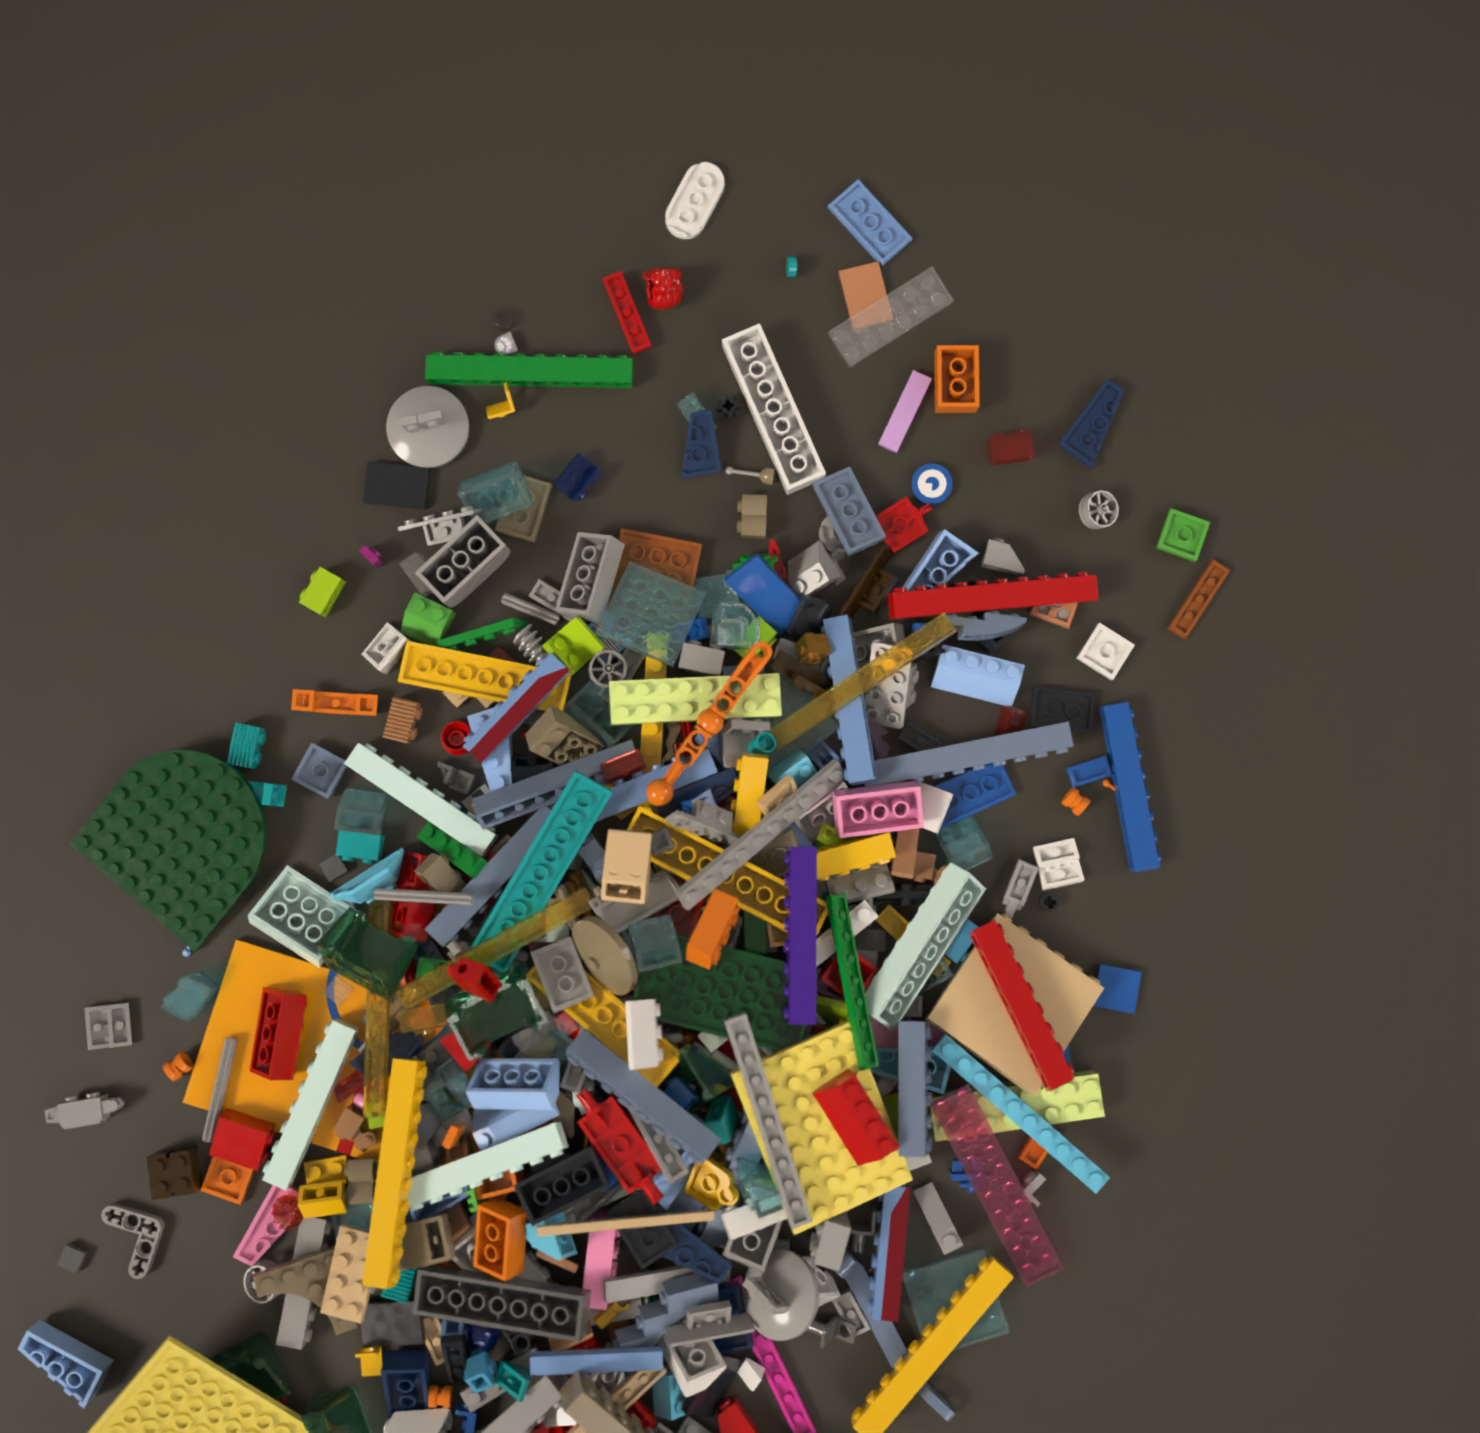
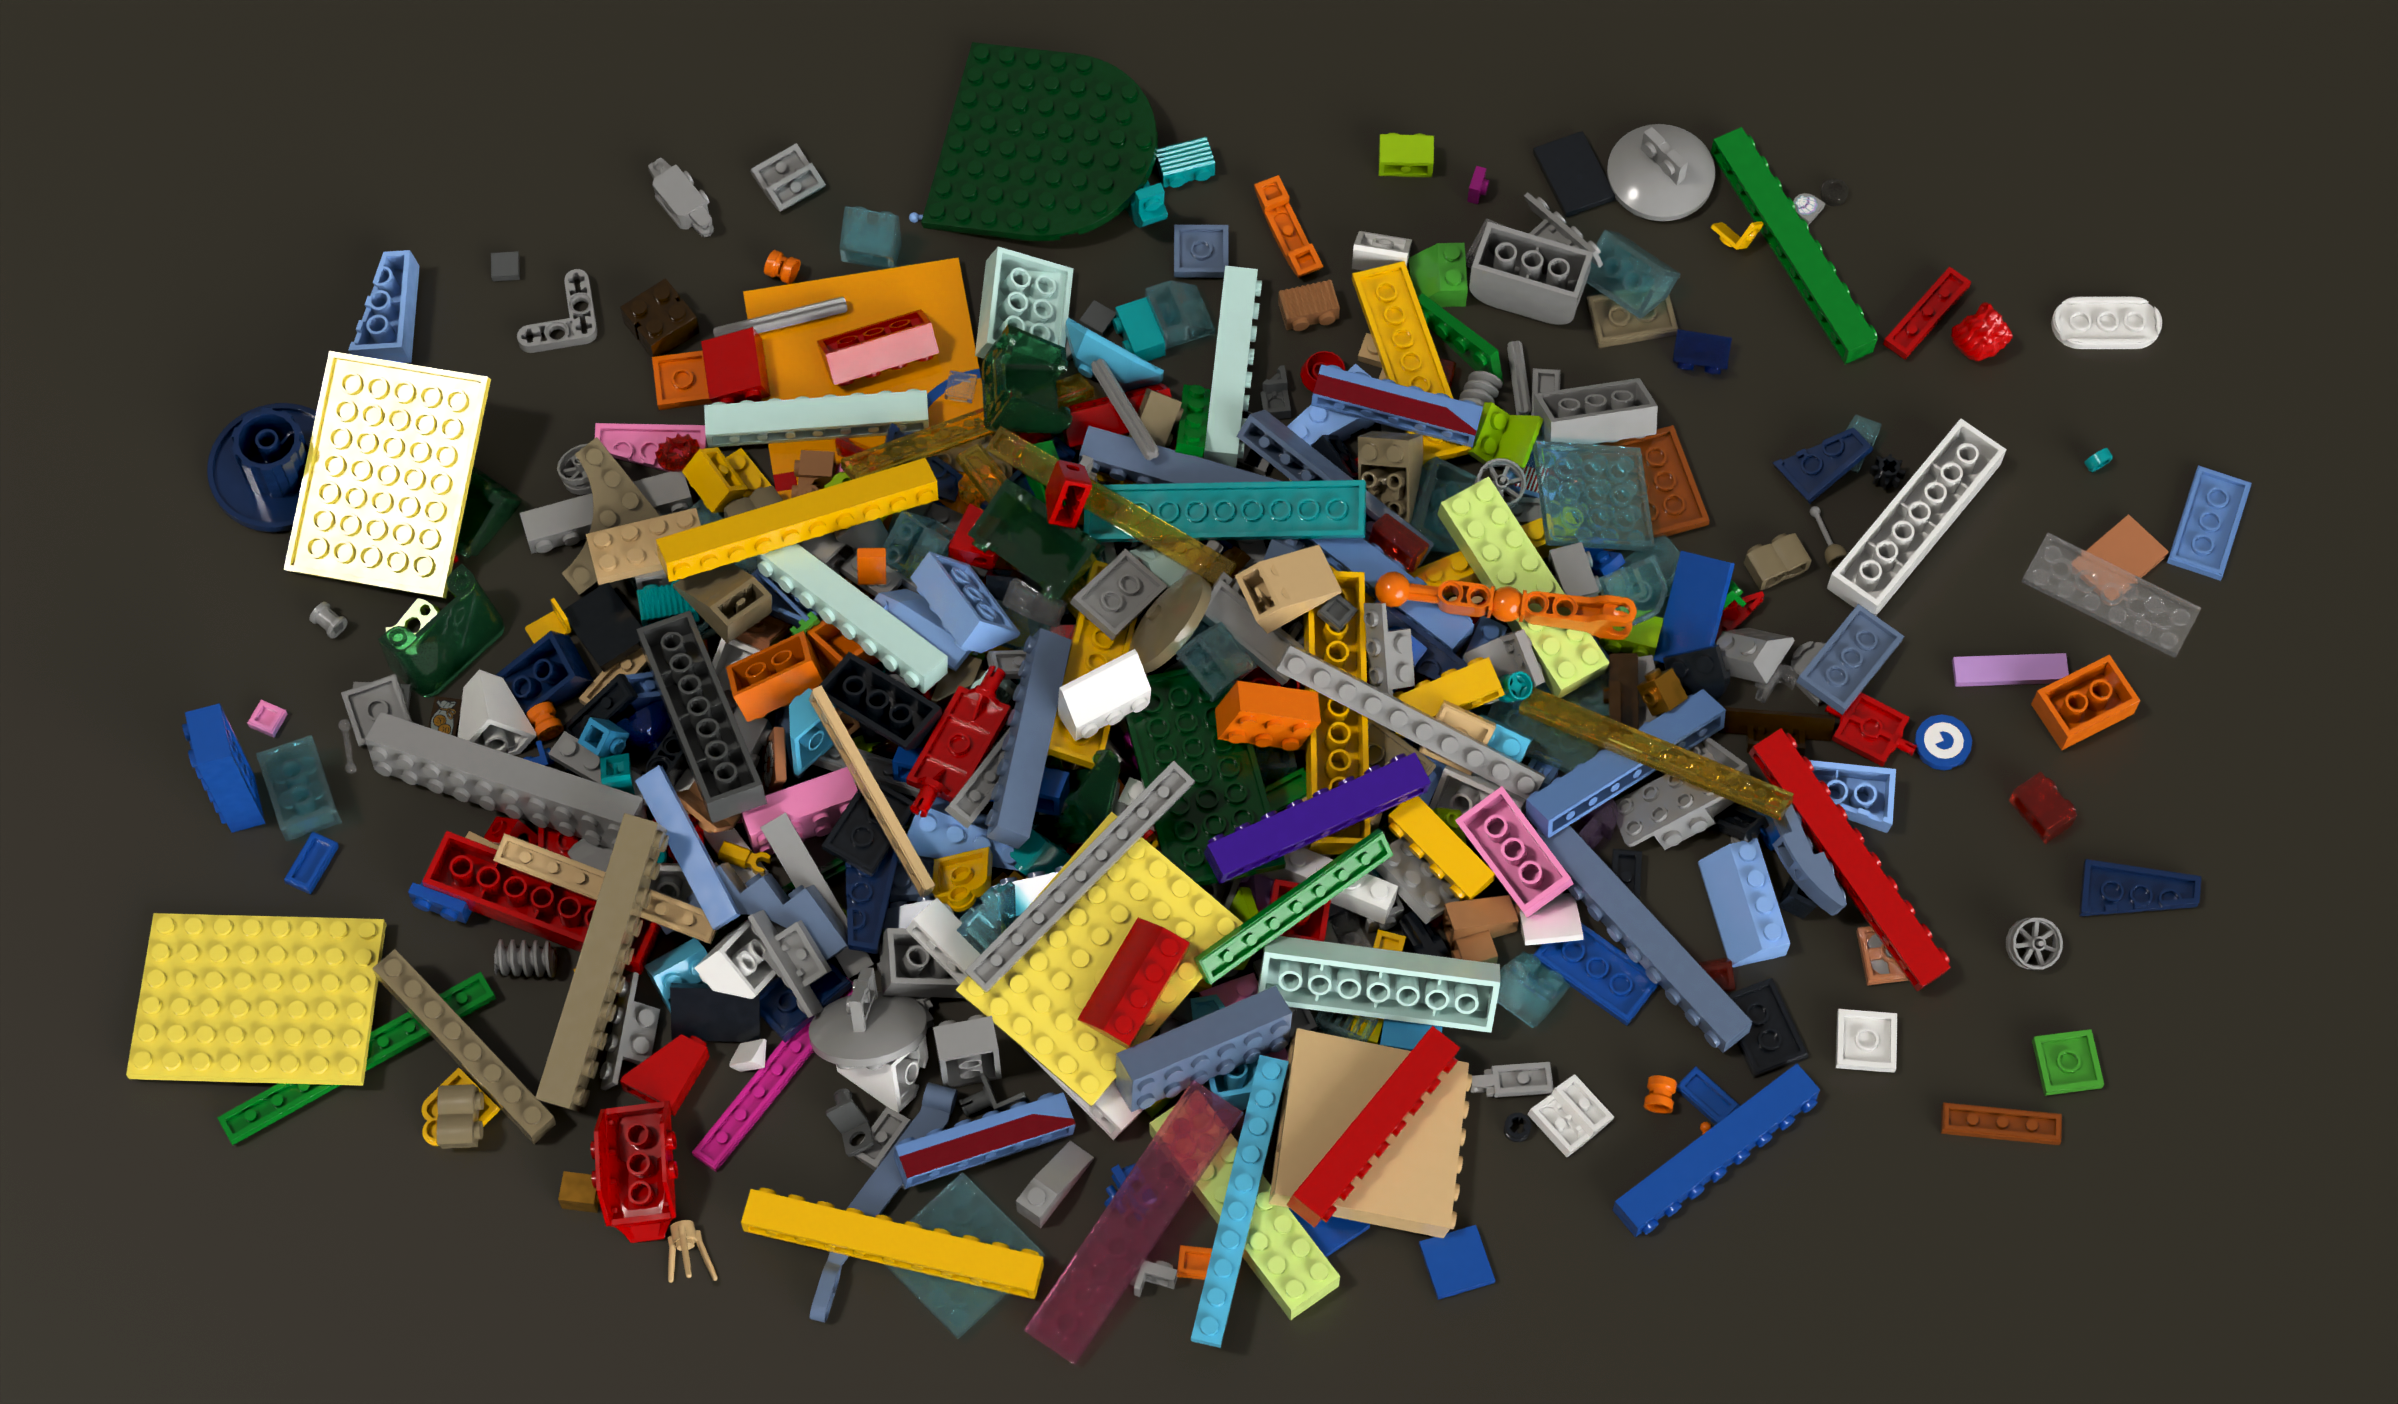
camera: 60 degrees right, 20 degrees down
(1001, 558) = (1903, 858): light grey slope -> none

